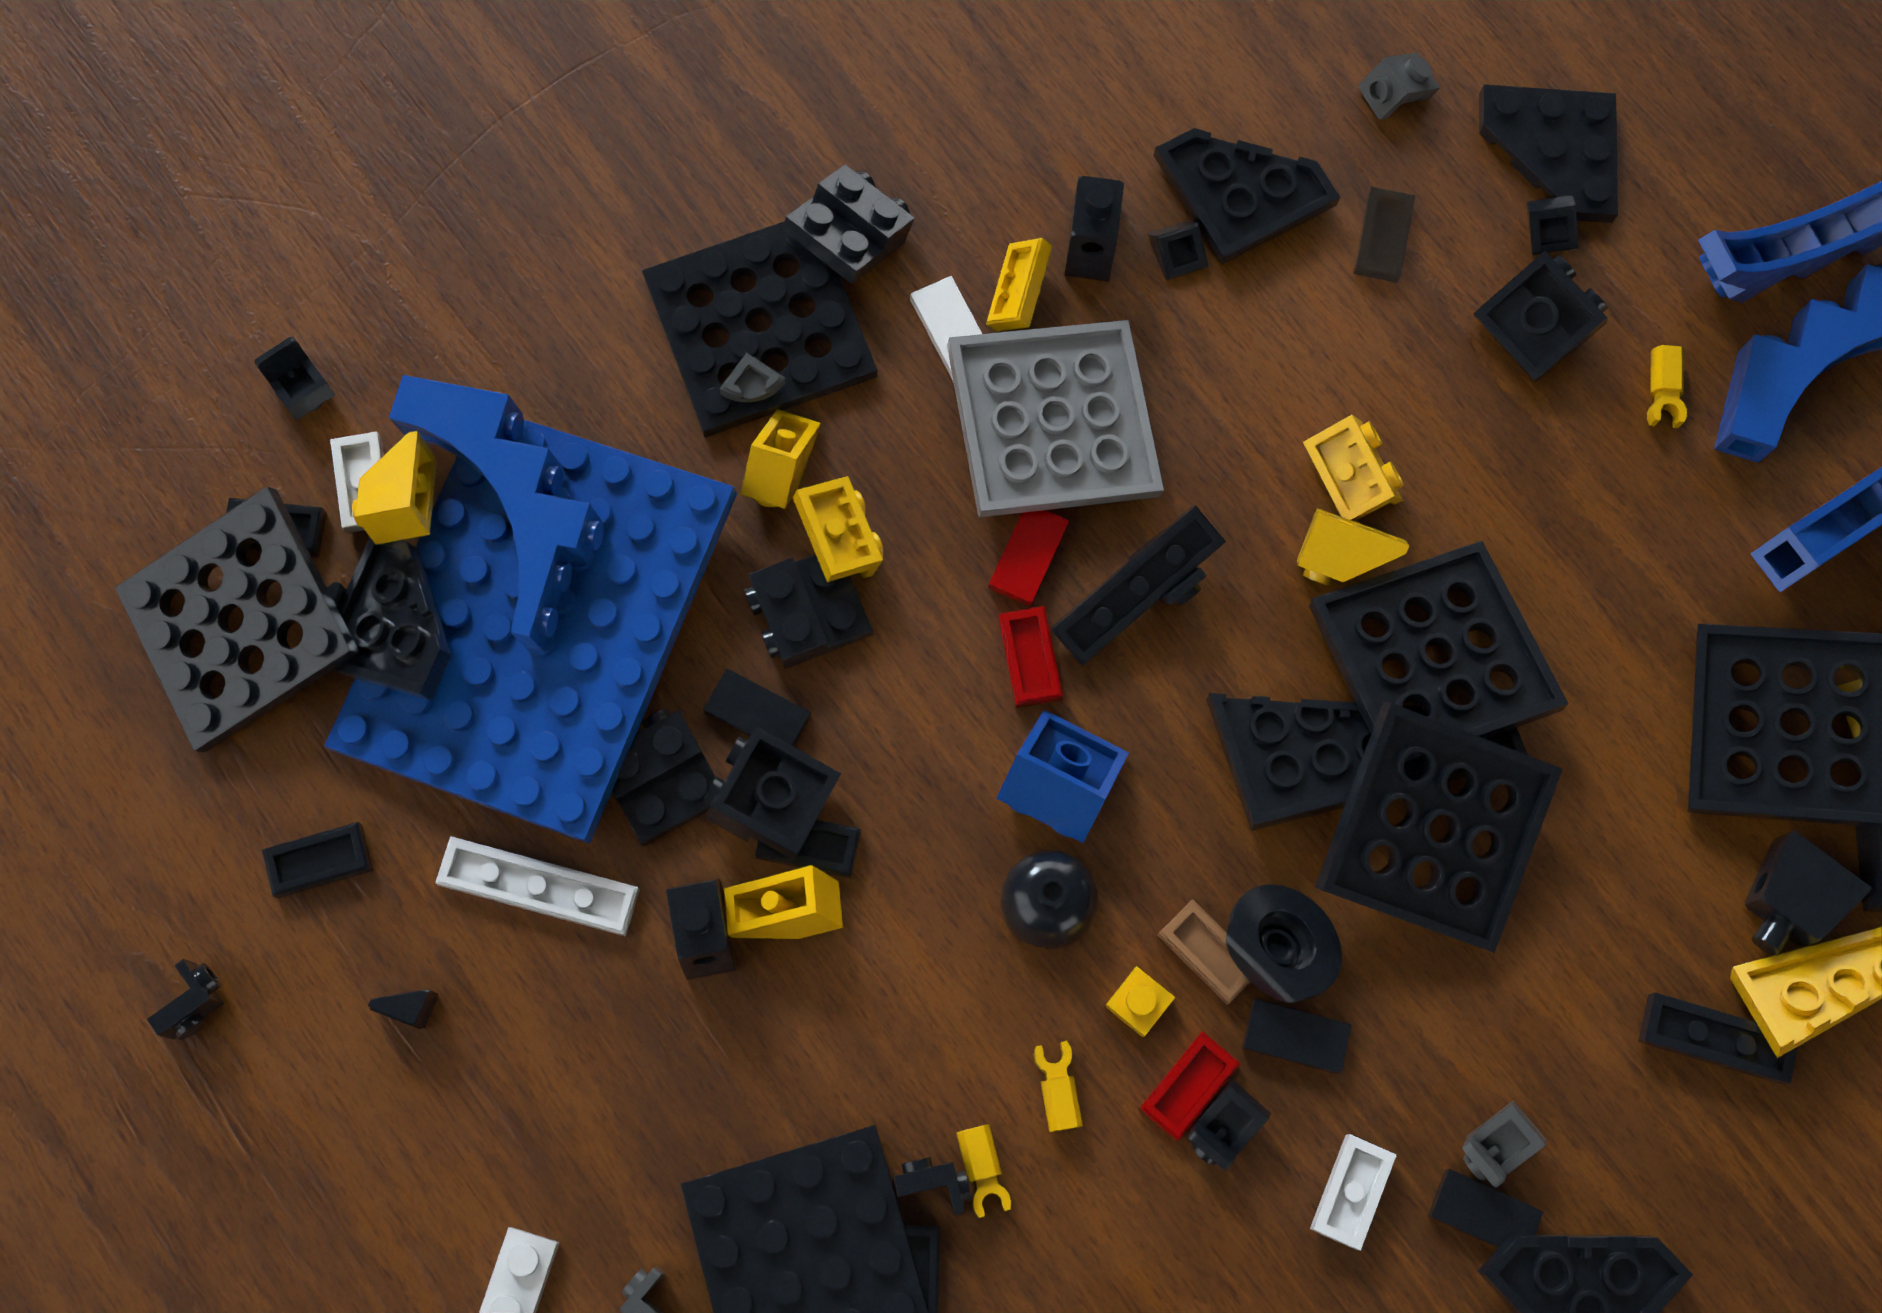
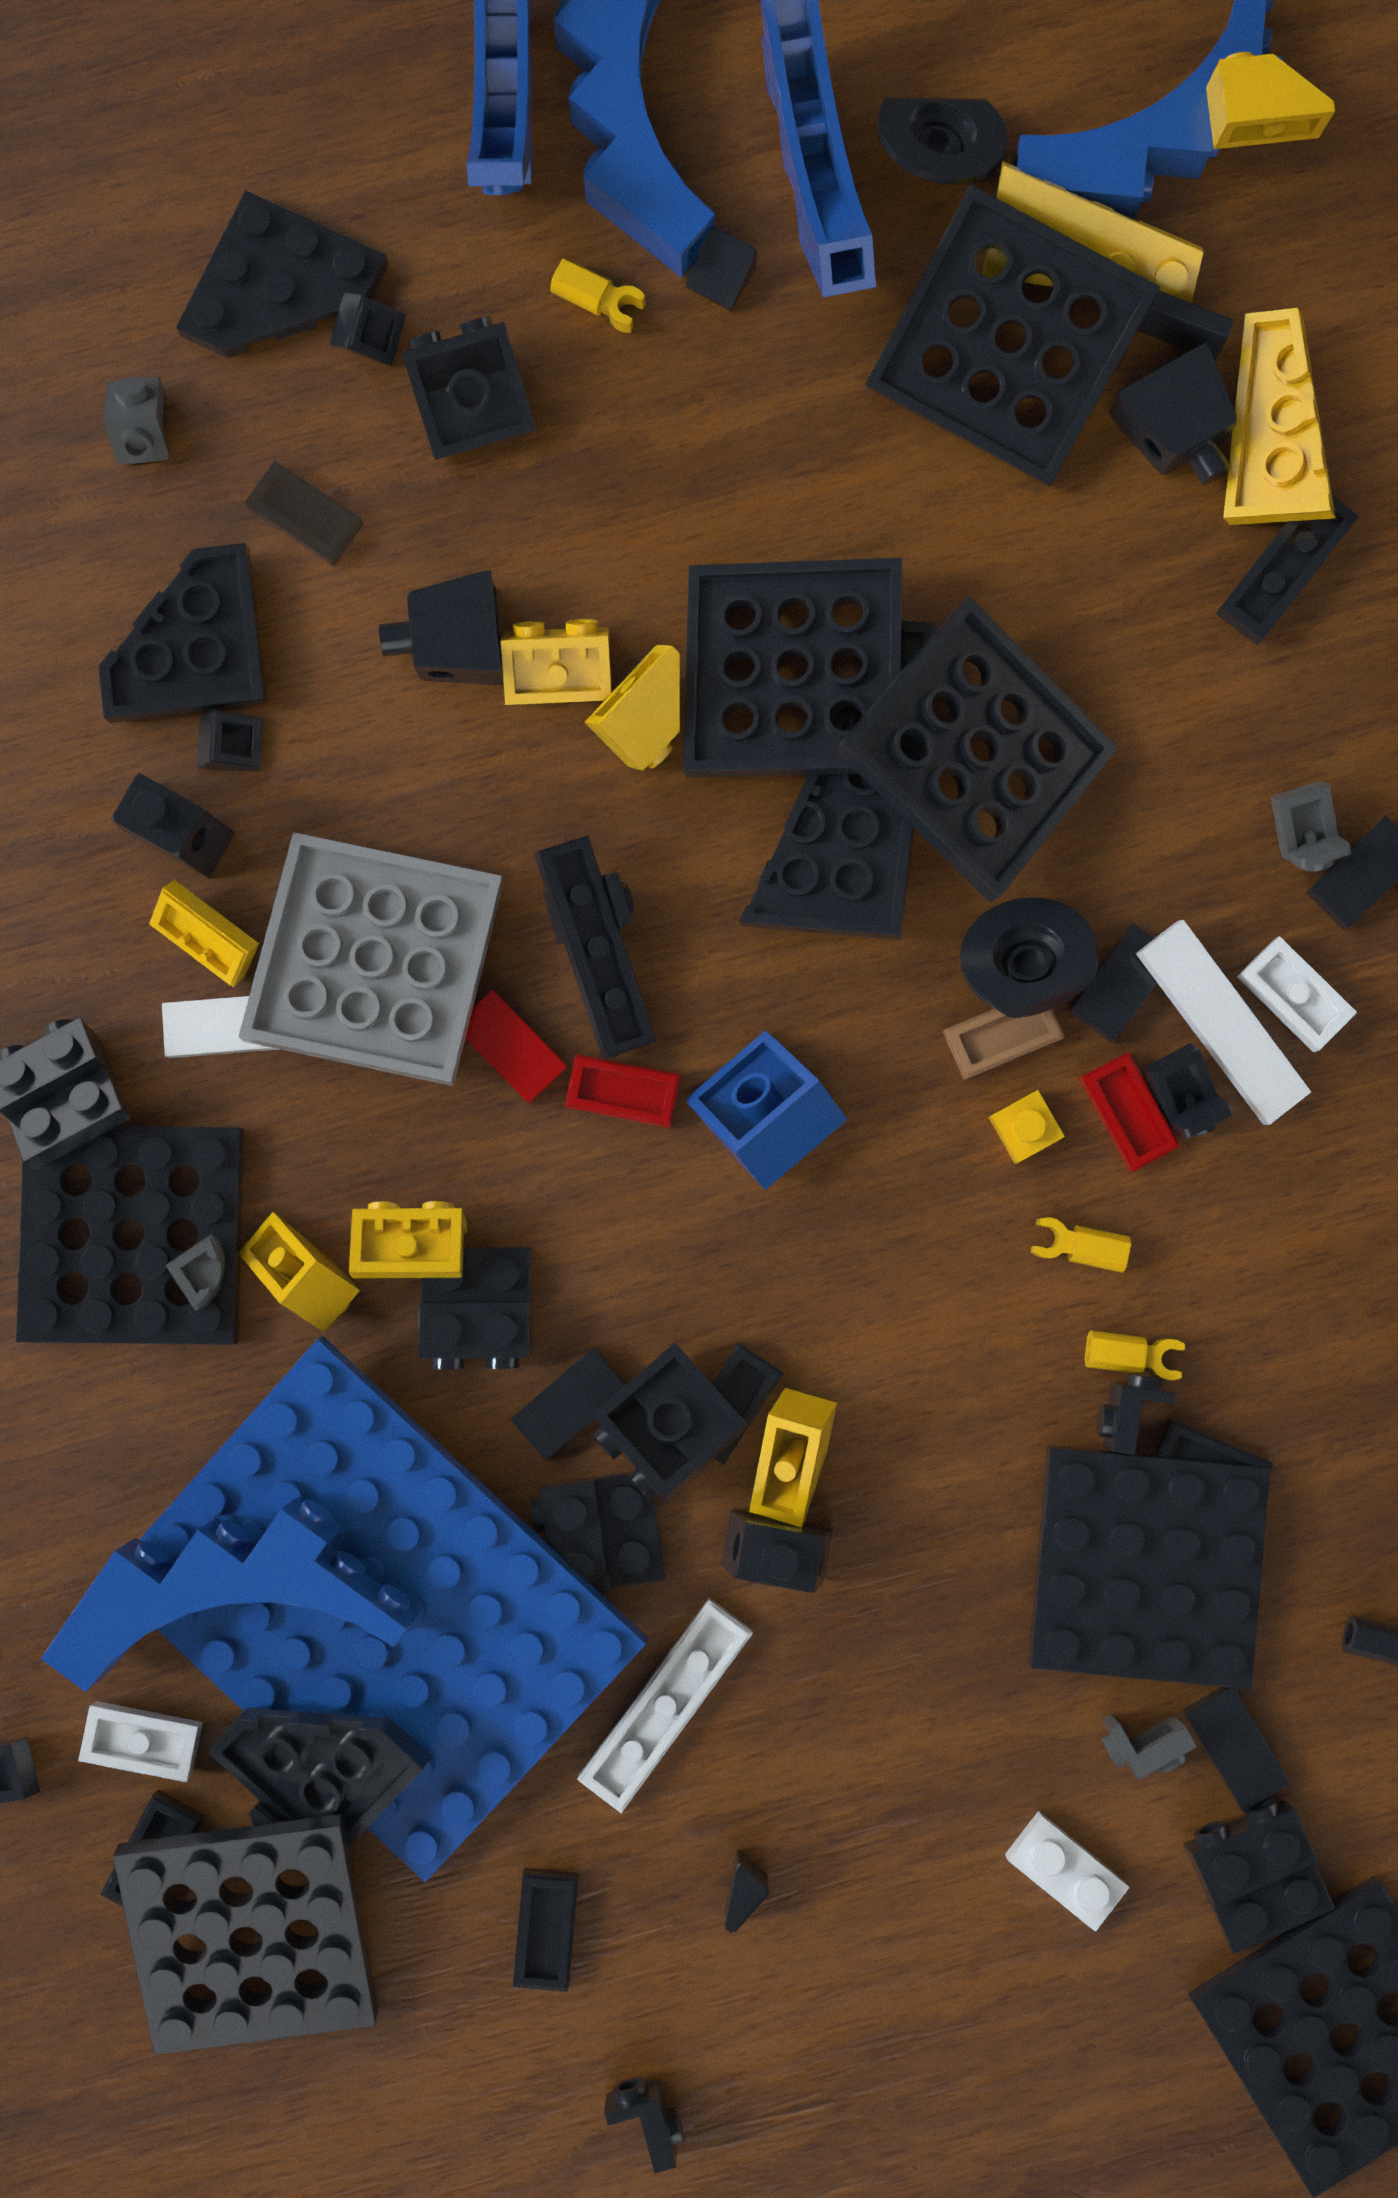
camera: 60 degrees left, 10 degrees up
(398, 492) = (176, 1709): yellow slope -> none
(1049, 899) = (887, 1176): black cylinder -> none
(1300, 1136) = (1223, 1022): none -> white tile
(1342, 377) = (451, 631): none -> black torso
(1736, 475) = (722, 268): none -> black slope

